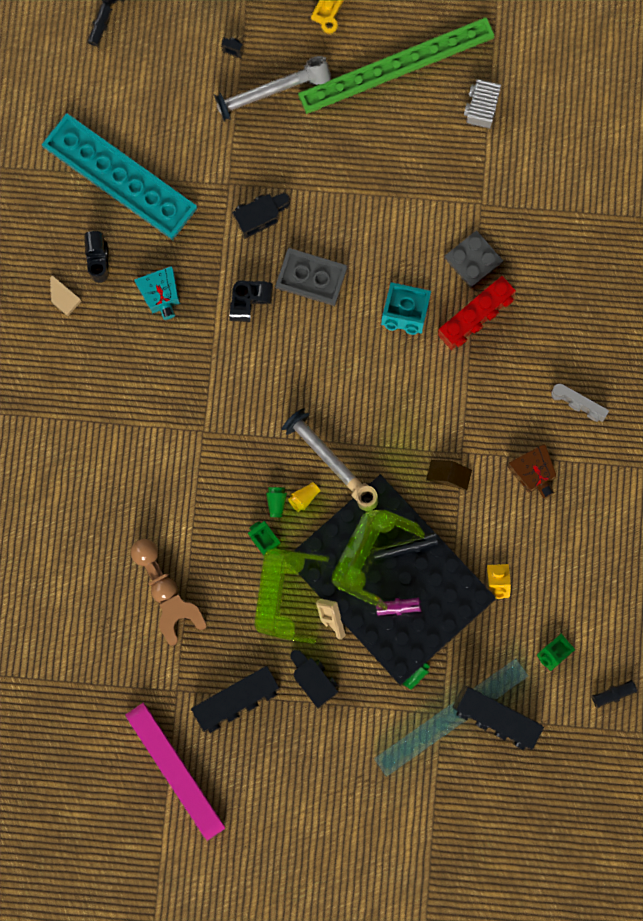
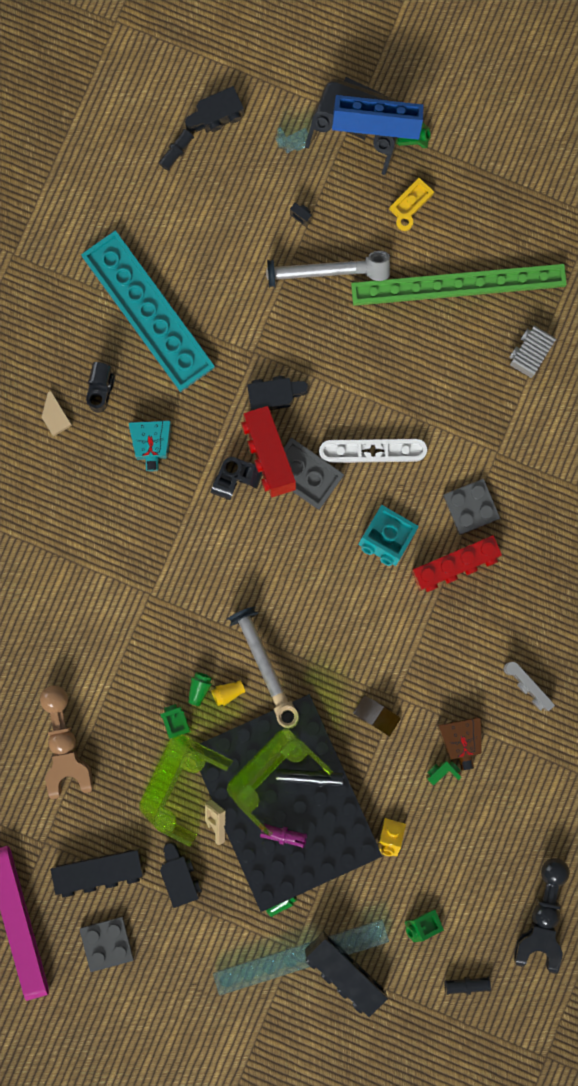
camera: 15 degrees right, 5 degrees up
(265, 764) = (106, 944): none -> dark grey plate
(272, 264) = (269, 452): none -> red brick
(347, 243) = (395, 450): none -> white piece
(521, 506) = (437, 772): none -> green bracket

